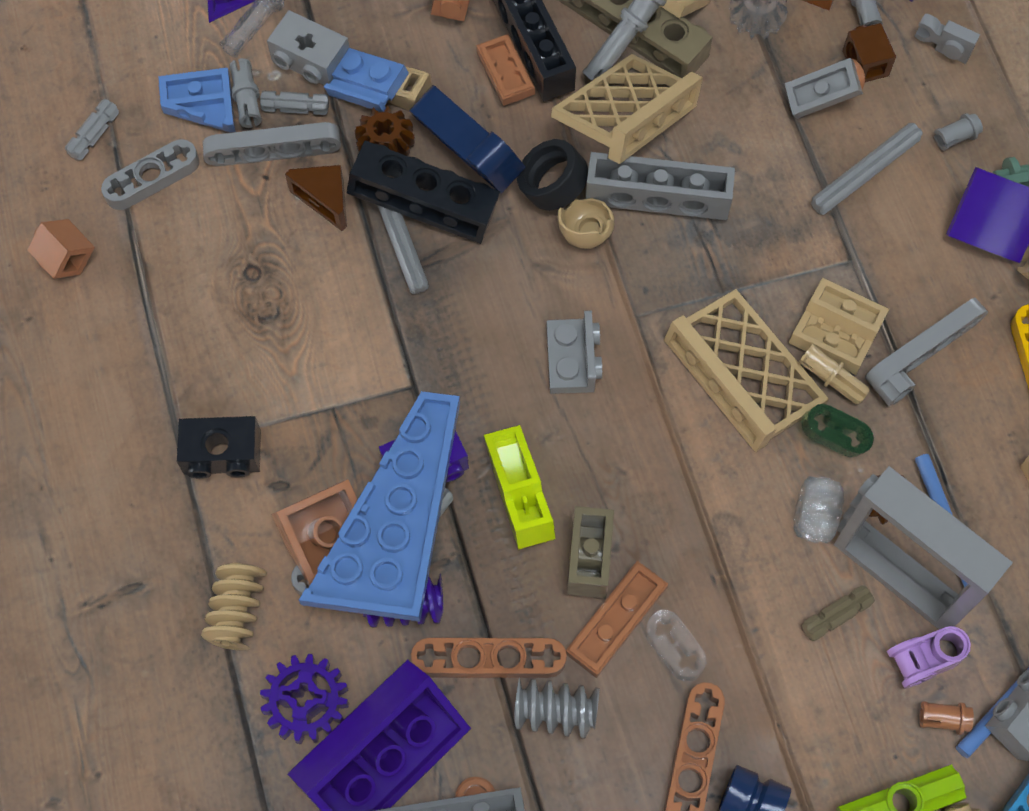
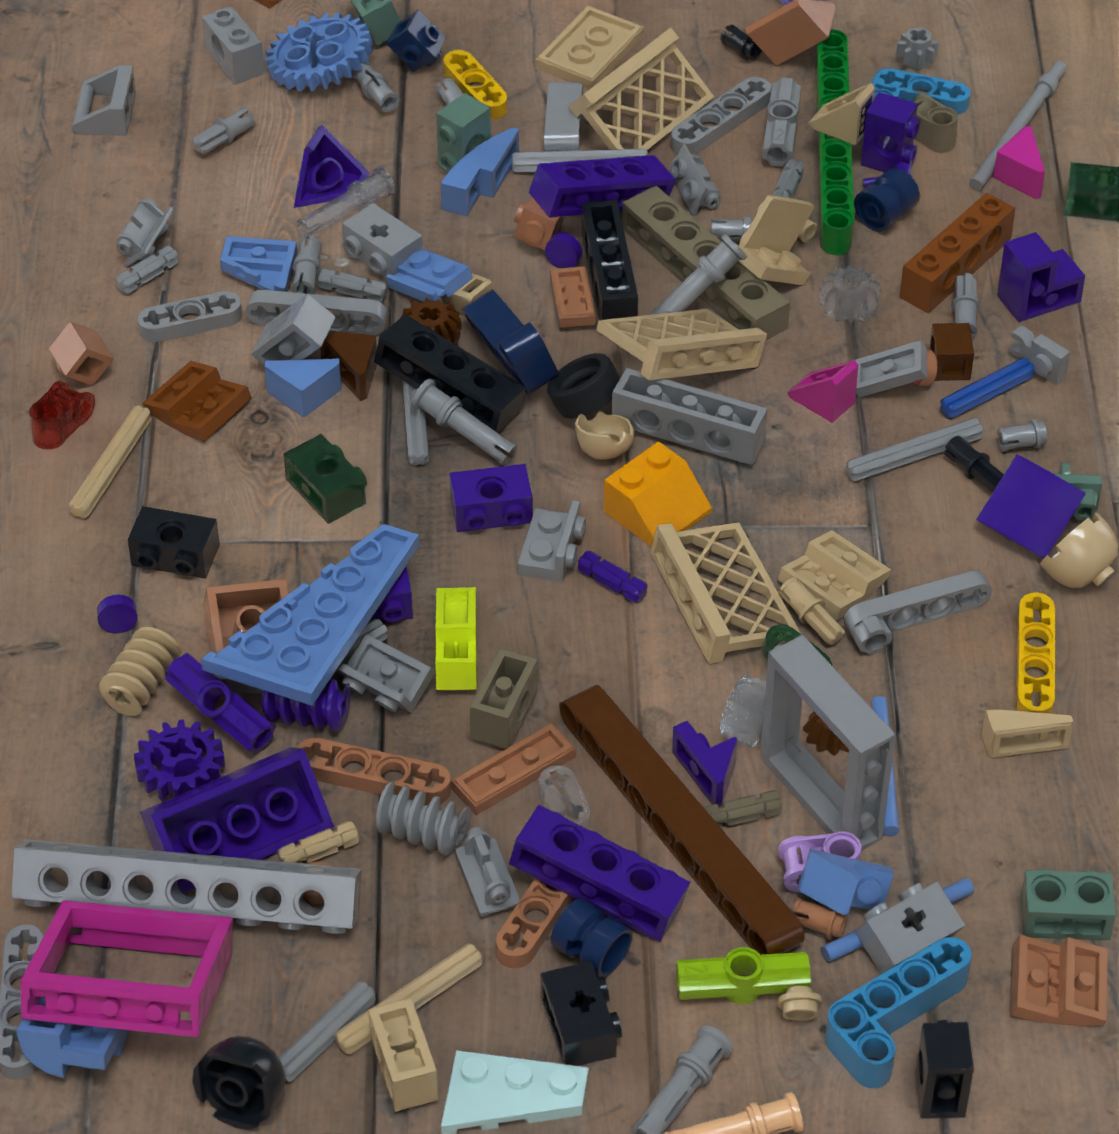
camera: 15 degrees right, 20 degrees down
(62, 315) = (59, 414): none -> clear red piece
(75, 101) = (138, 242): none -> light grey hinge
(127, 363) = (110, 462): none -> tan axle
(188, 270) = (197, 400): none -> dark orange slope
(190, 542) = (117, 614): none -> dark purple tile
(262, 183) = (294, 332): none -> light grey brick
(284, 230) = (303, 383): none -> medium blue slope
(346, 635) = (234, 717): none -> dark purple piece
(350, 352) = (325, 478): none -> clear green brick
(435, 235) = (450, 413): none -> light grey pin
(464, 757) = (320, 844): none -> tan axle
(470, 549) = (387, 674): none -> light grey bracket
(481, 20) = (563, 250): none -> dark purple tile
(514, 304) = (491, 497): none -> dark purple brick
(632, 749) = (486, 873): none -> light grey hinge
(640, 378) = (612, 576): none -> dark purple axle
(654, 281) = (654, 492): none -> light orange slope
(679, 727) = (599, 872): none -> dark purple brick
(769, 121) = (828, 390): none -> dark pink slope
(792, 645) = (681, 823): none -> reddish brown beam
(800, 579) = (707, 766): none -> dark purple slope
(909, 84) = (987, 387): none -> blue axle
(928, 173) = (973, 462): none -> black axle
(964, 681) = (844, 881): none -> medium blue slope

